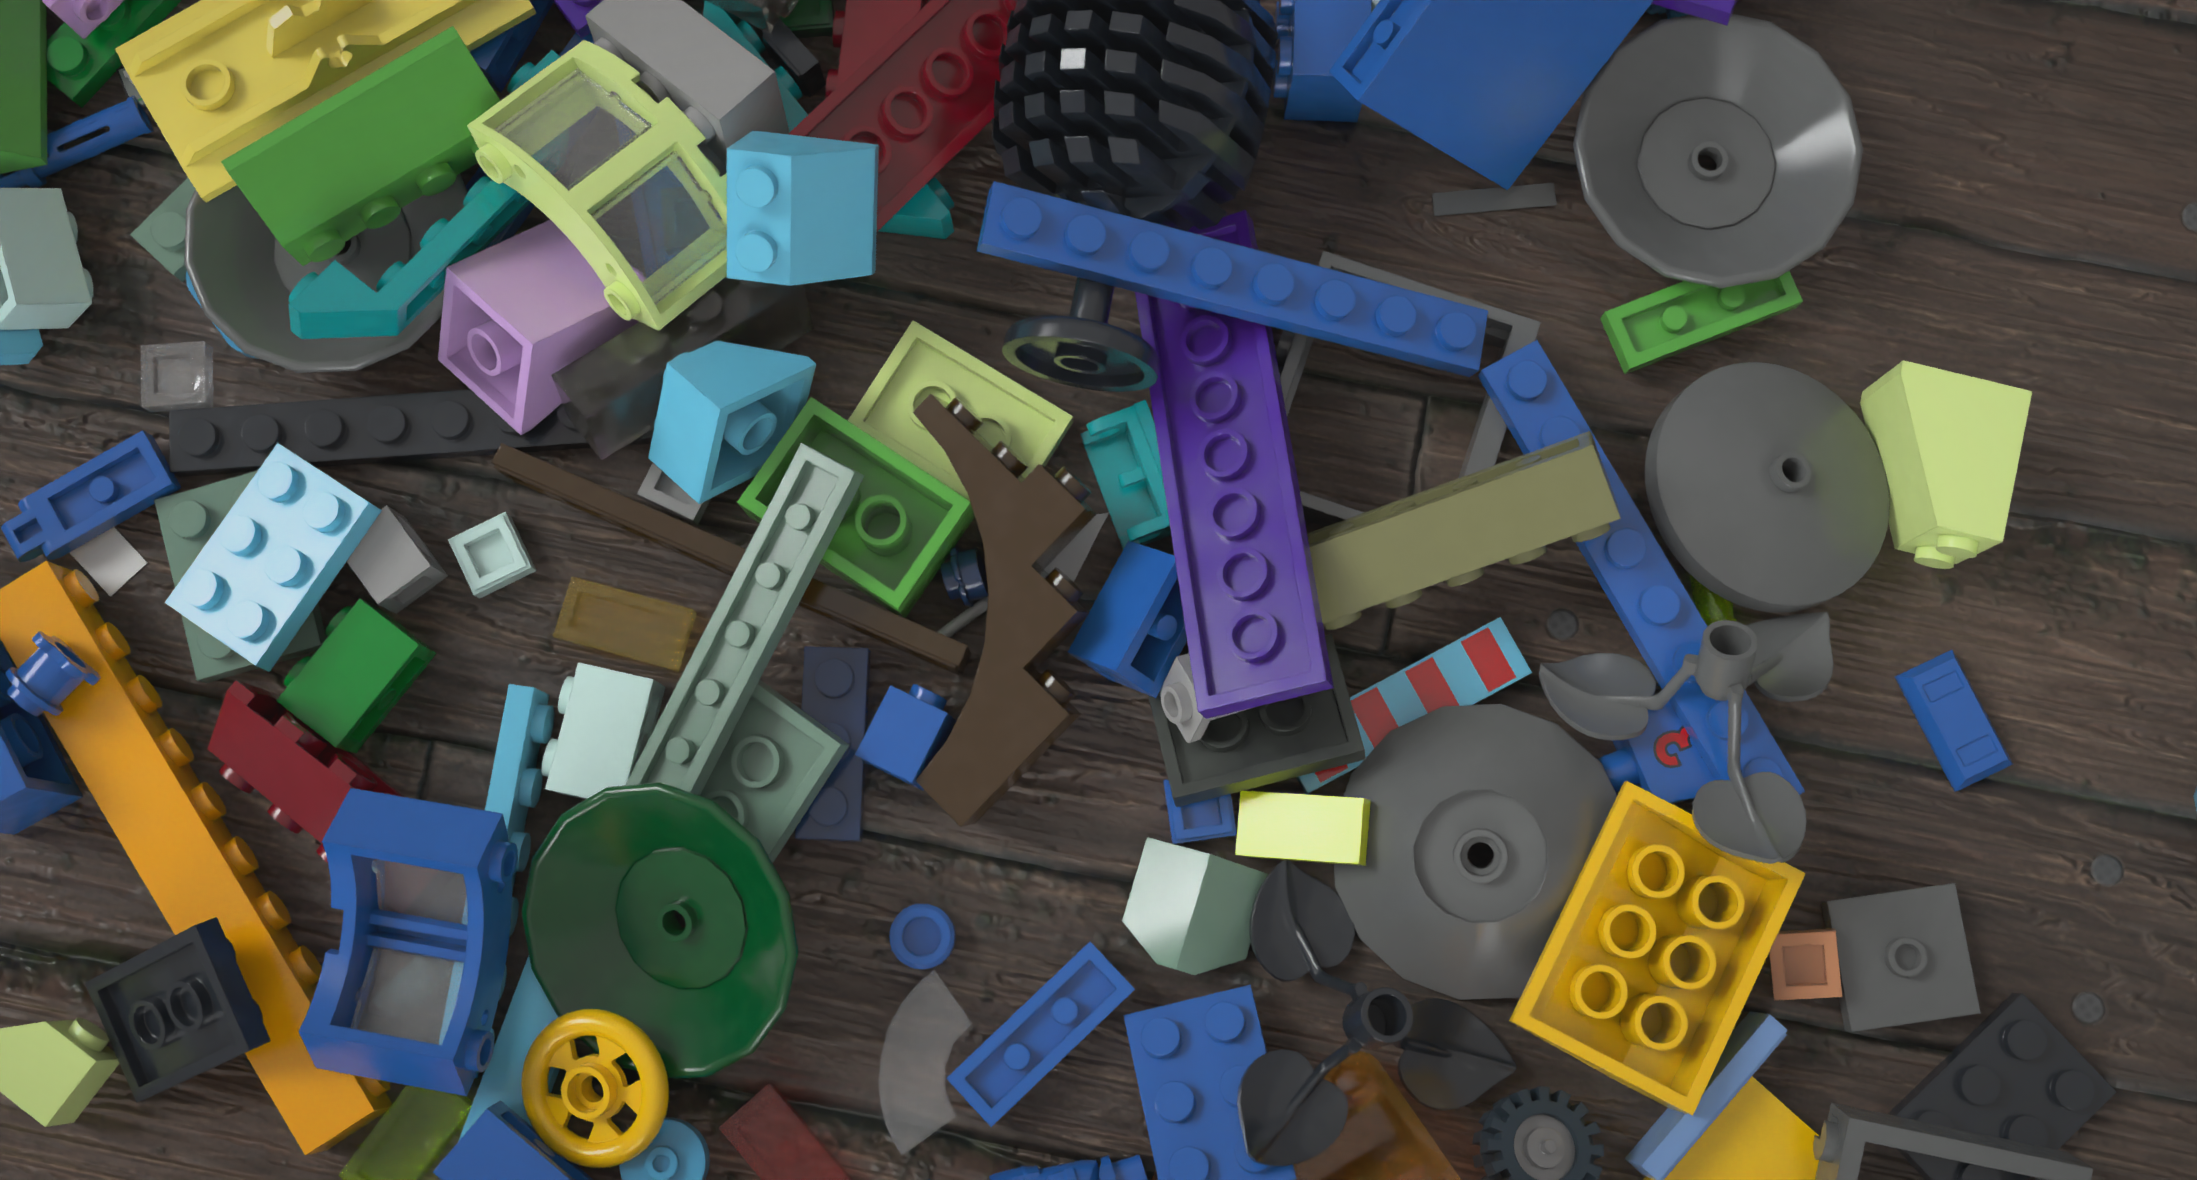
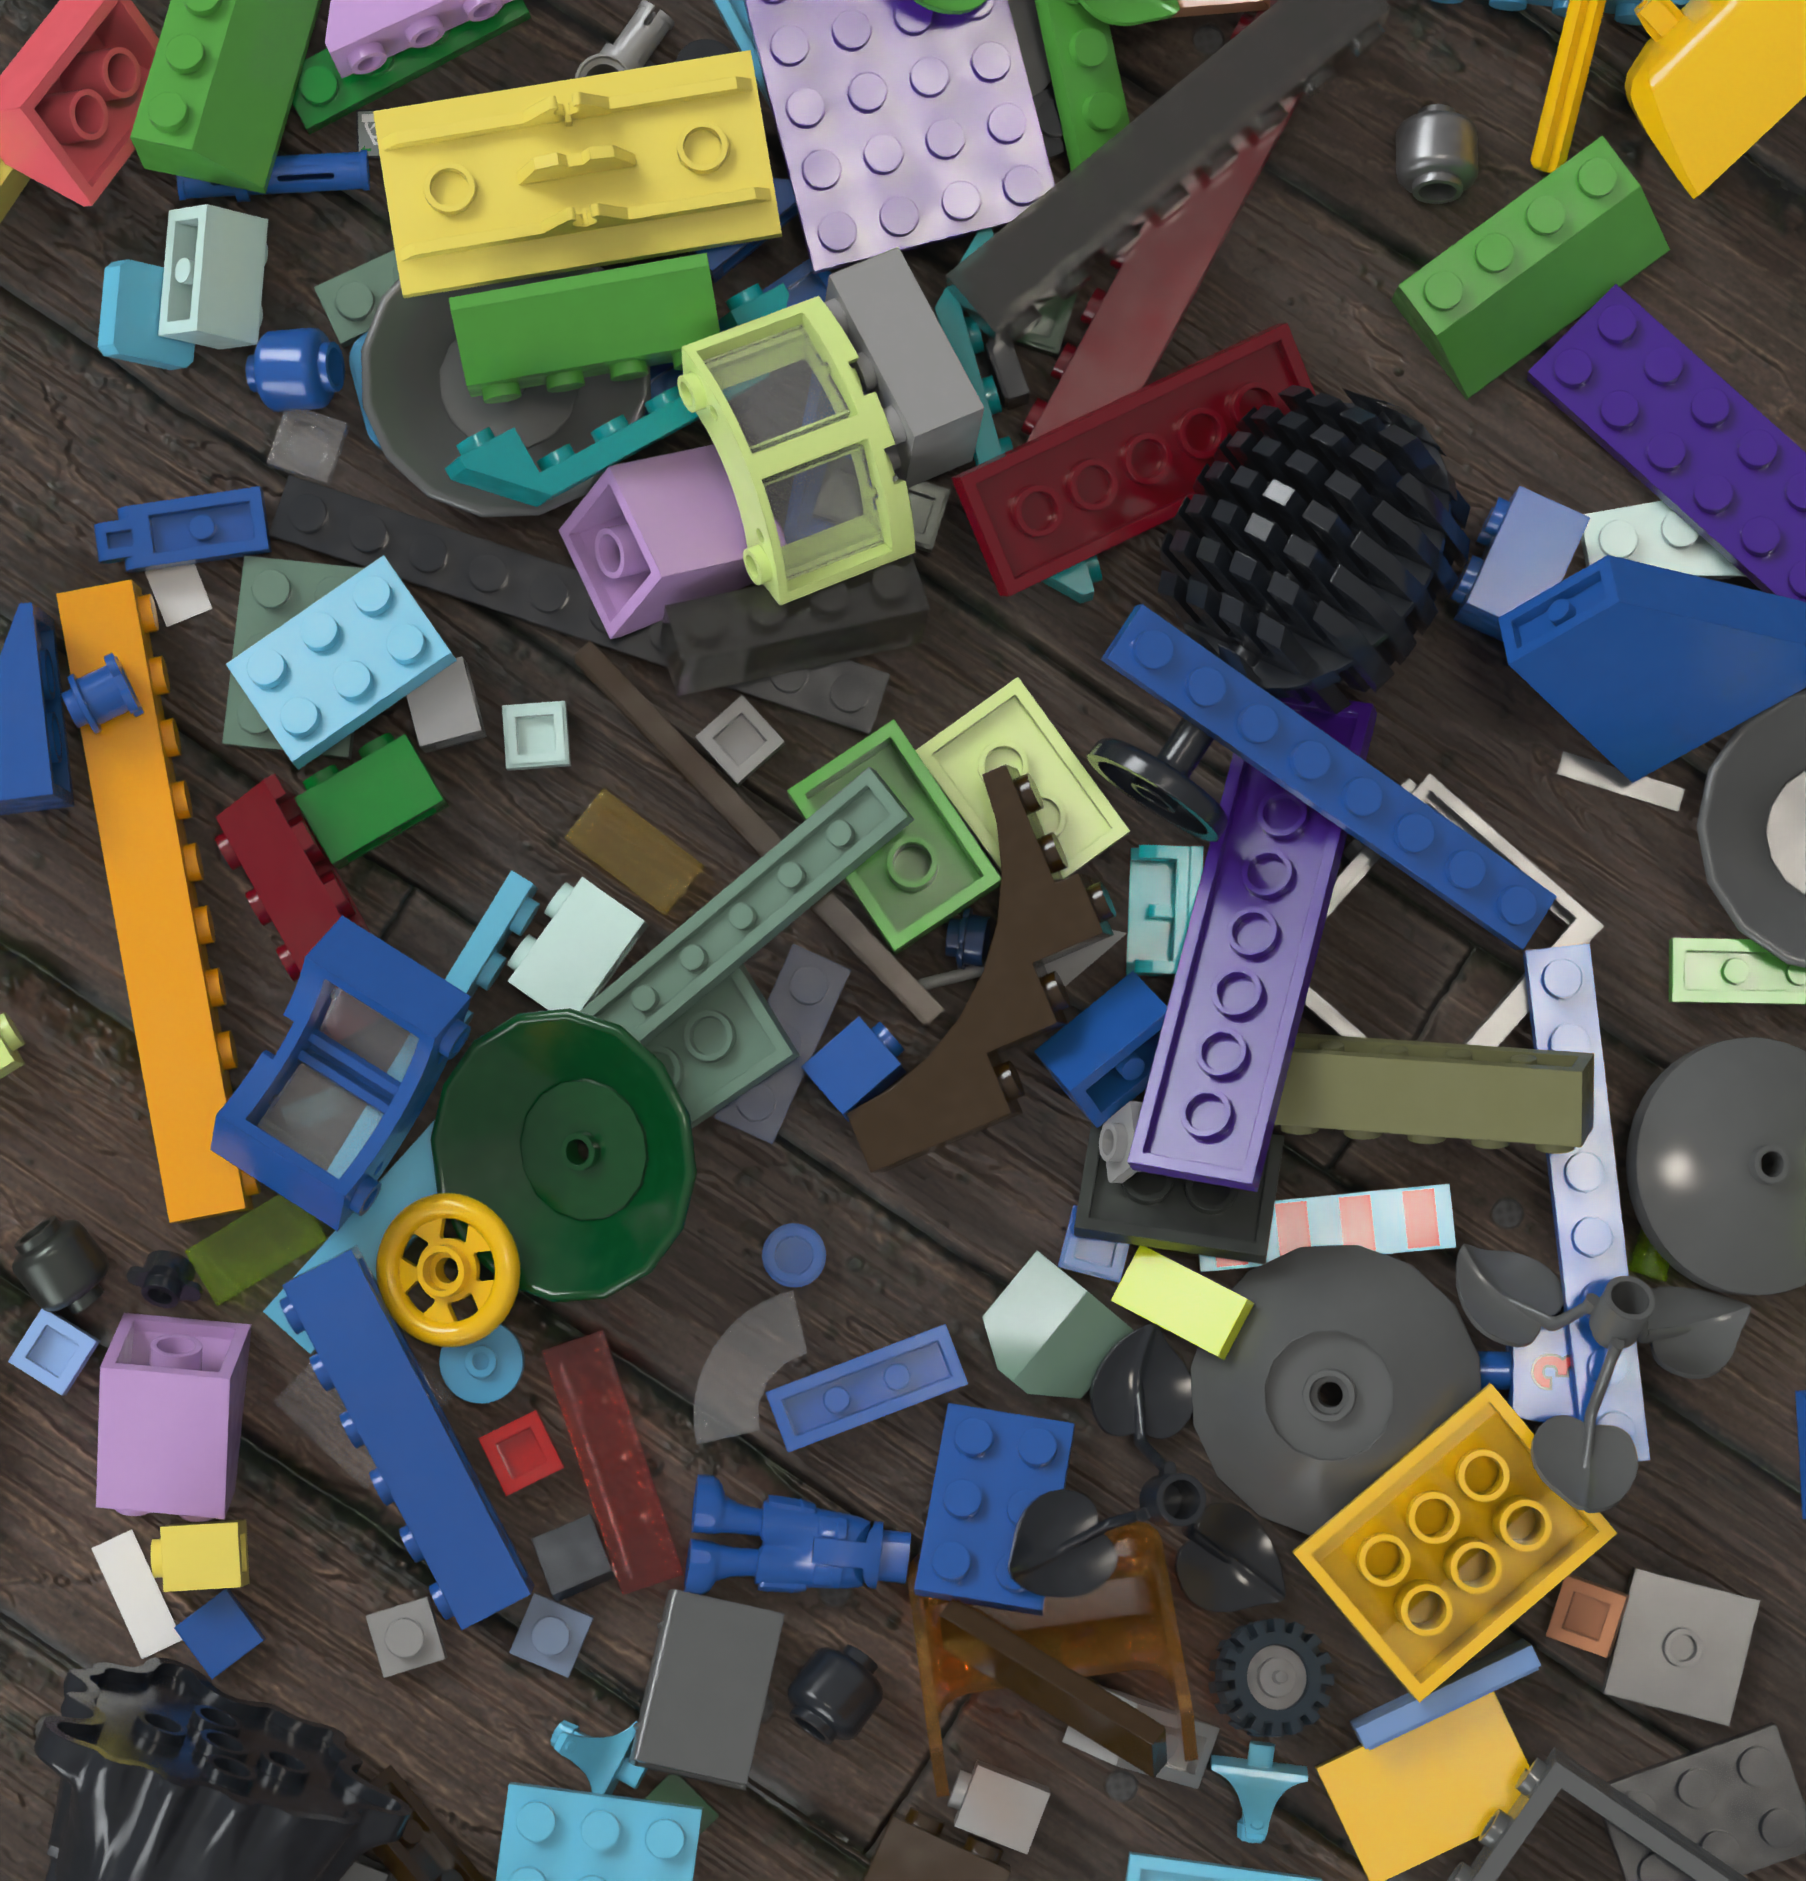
camera: 25 degrees right, 5 degrees up
(138, 312) = (295, 369): none -> blue head
(178, 1010) = (103, 1046): black plate -> none
(725, 414) = (809, 704): medium azure slope -> none
(800, 209) = (956, 549): medium azure slope -> none

